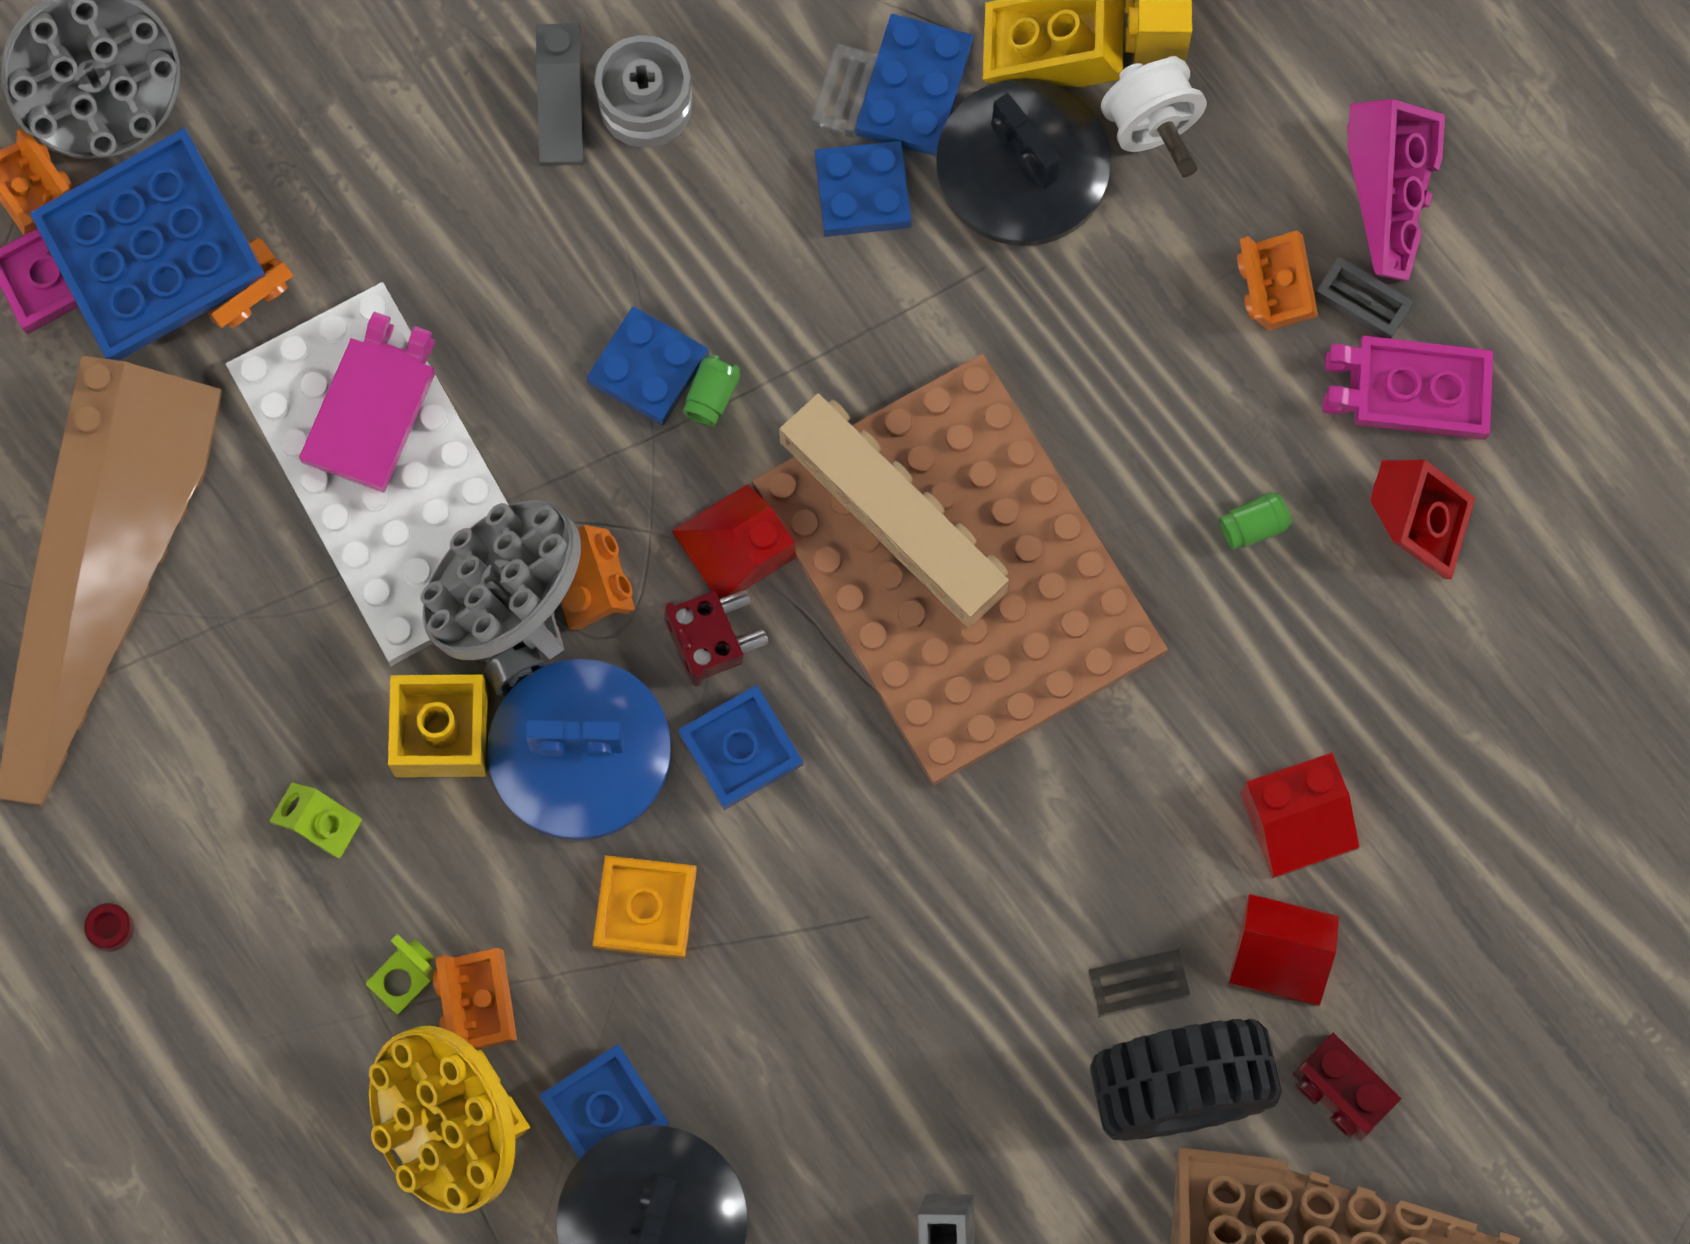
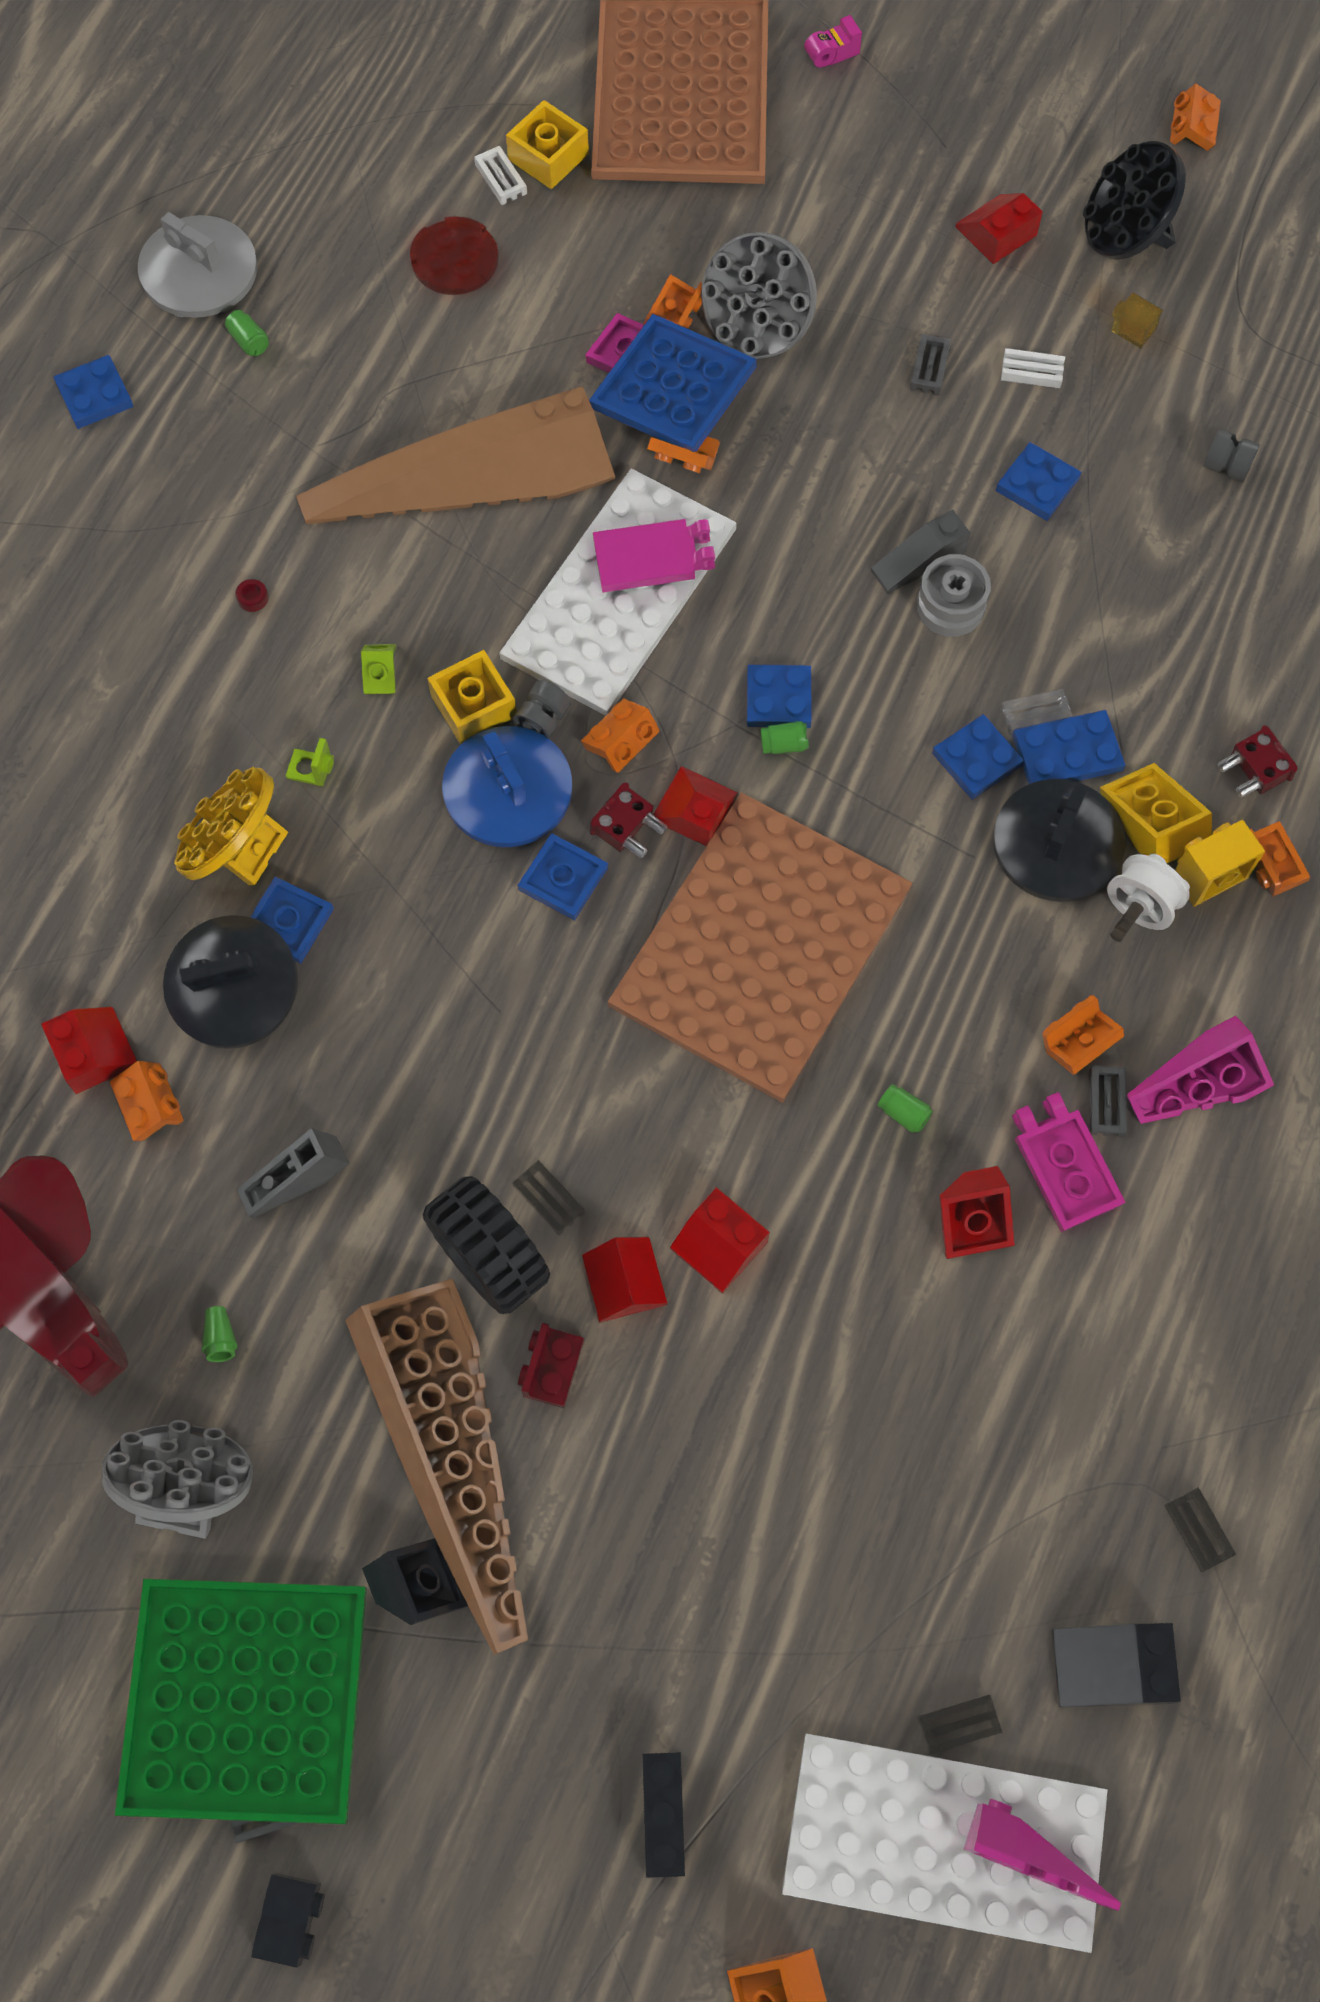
camera: 60 degrees right, 5 degrees down
(476, 997) = (314, 809): orange bracket -> none
(503, 582) = (575, 678): light grey bracket -> none
(644, 907) = (430, 877): light orange tile -> none
(894, 509) = (767, 879): tan brick -> none

